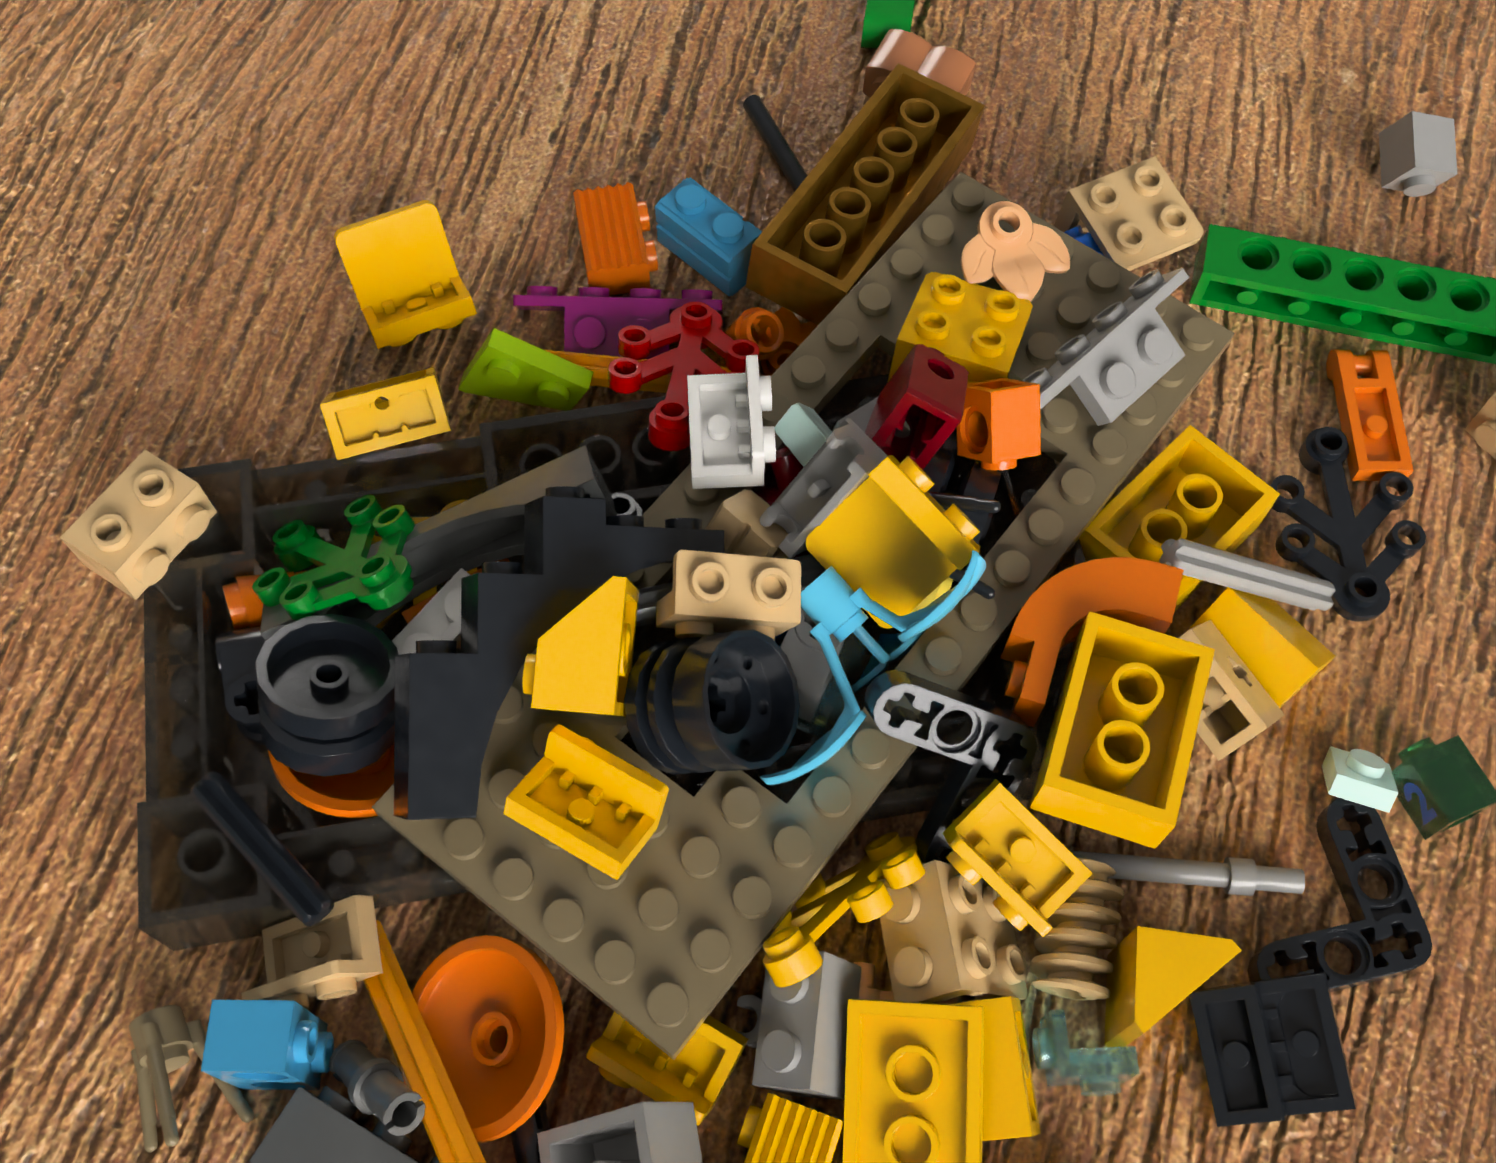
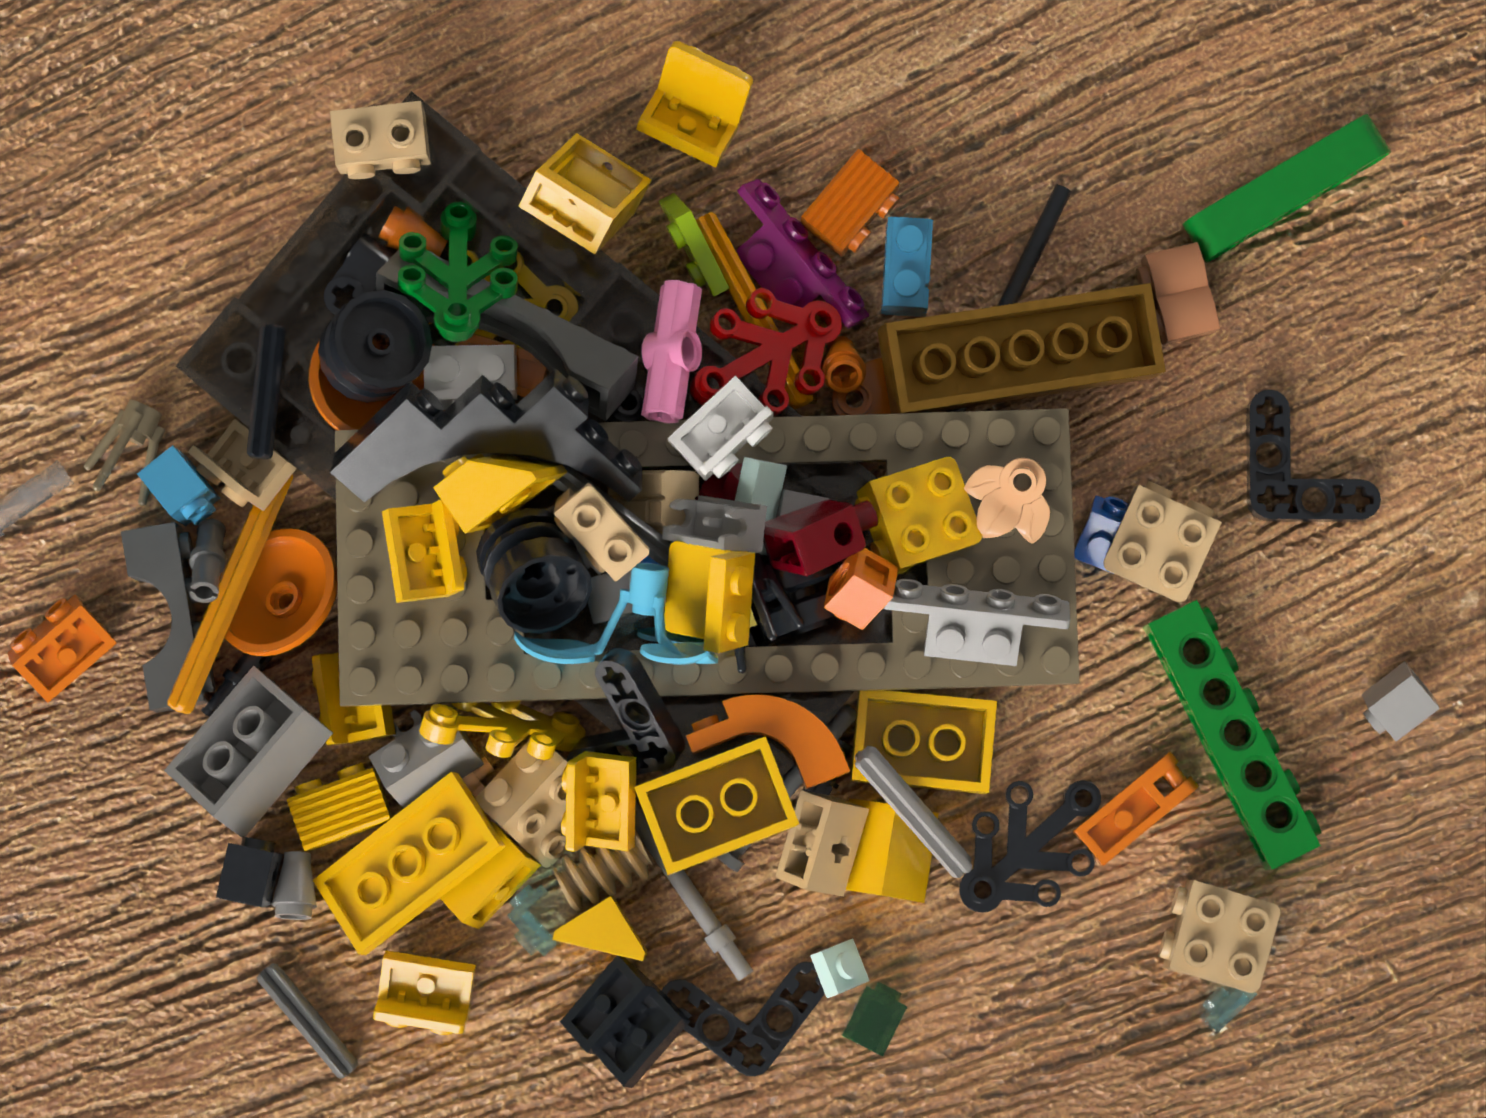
camera: 50 degrees right, 20 degrees up
(609, 427) = (671, 351): none -> bright pink piece
(1138, 122) = (1279, 477): none -> black beam

